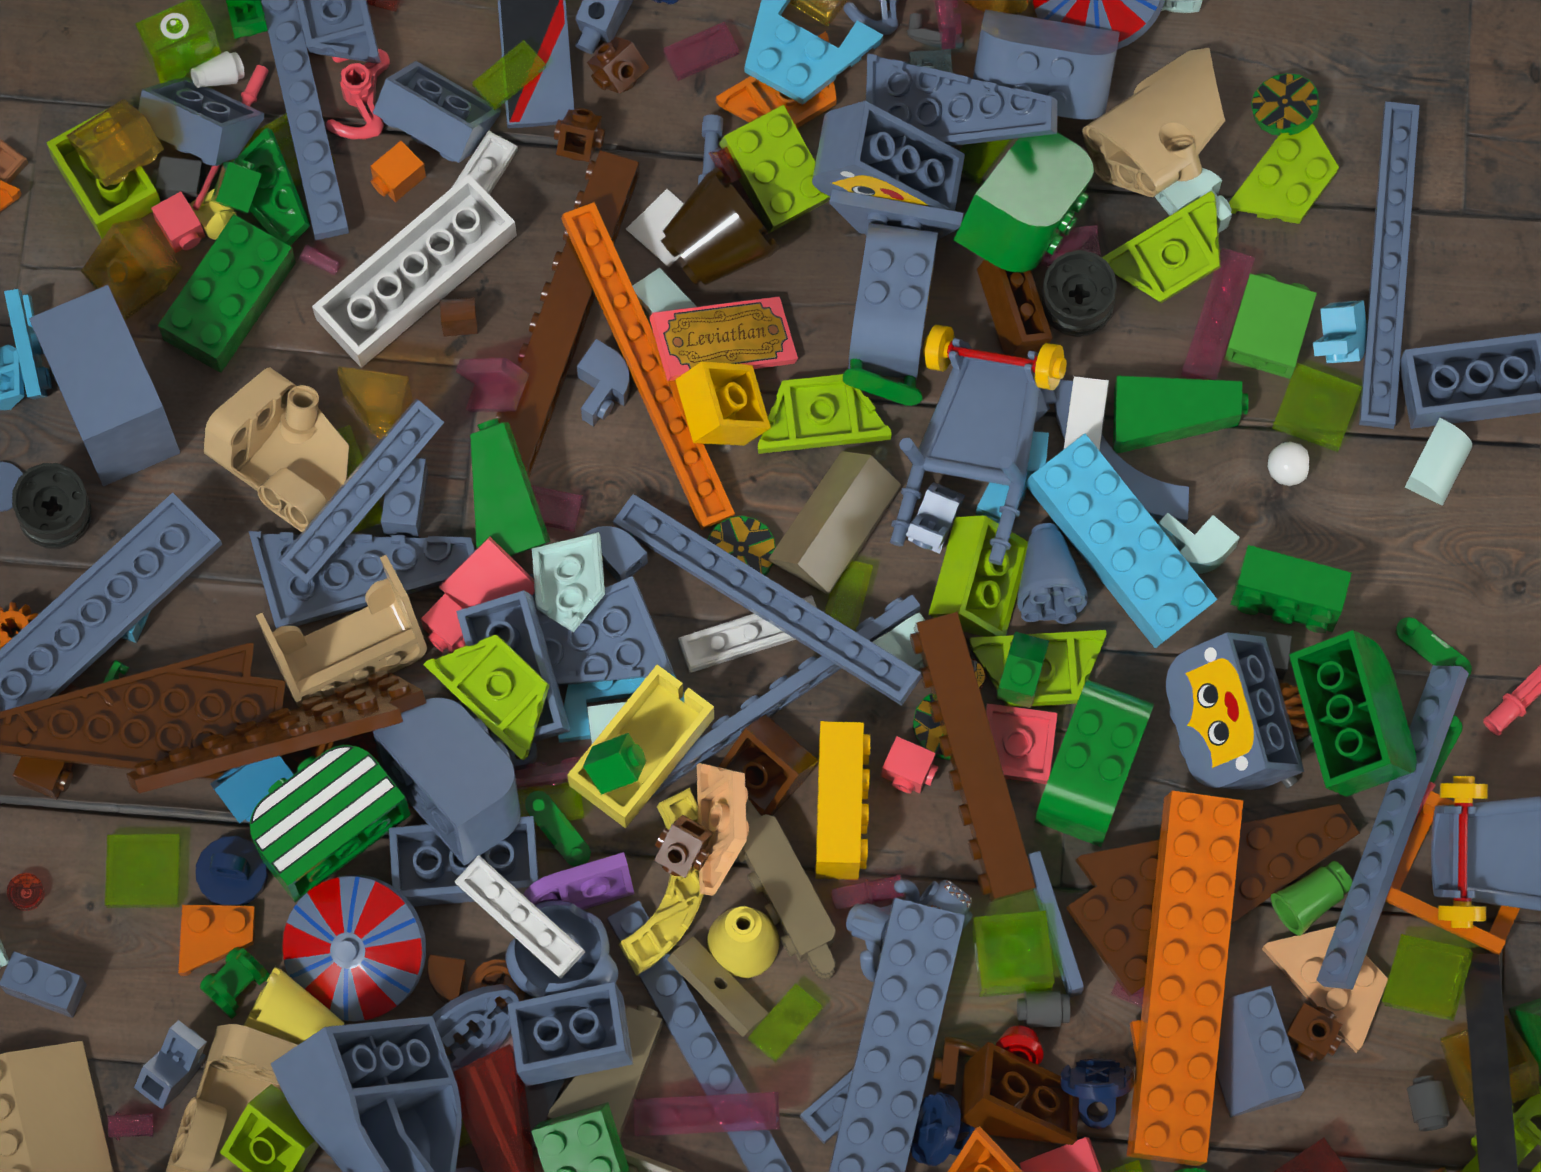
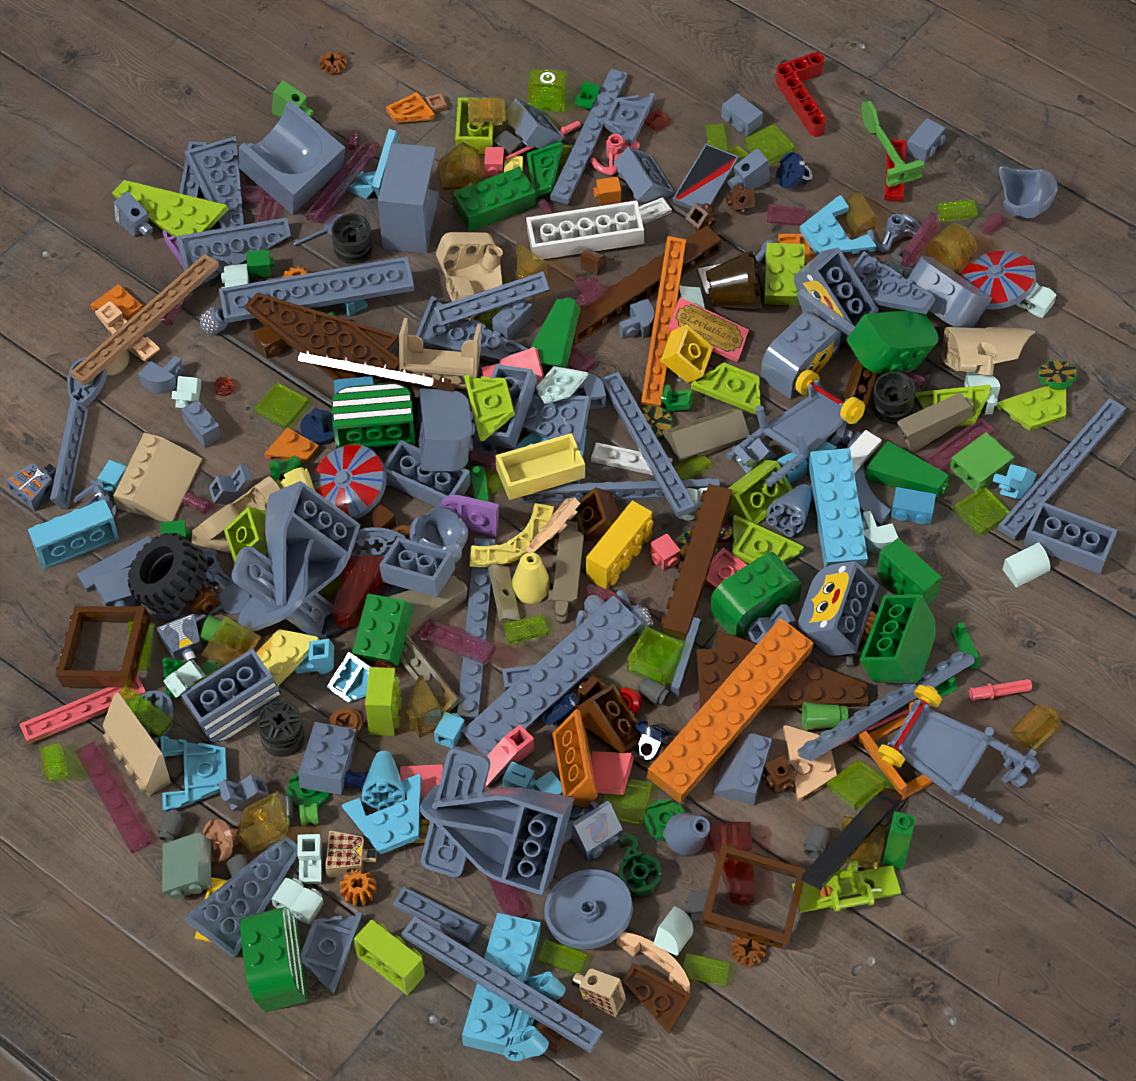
camera: 35 degrees right, 15 degrees down
(220, 70) = (557, 112): white cone -> none
(236, 185) = (529, 155): green brick -> none
(509, 75) = (687, 177): clear neon green tile -> none
(519, 917) = (431, 505): white tile -> none
(615, 763) = (519, 459): green brick -> none
(683, 847) = (529, 521): reddish brown brick -> none
(725, 162) = (761, 261): clear red tile -> none
(753, 487) = (677, 399): none -> green bracket
(870, 382) = (767, 386): green piece -> none
(1022, 669) = (748, 538): green slope -> none
(1146, 798) = (762, 625): none -> sand blue brick
(1169, 299) = (934, 421): none -> dark tan slope
(1218, 462) = (913, 506): none -> dark azure brick
(1288, 463) = (948, 525): white piece -> none

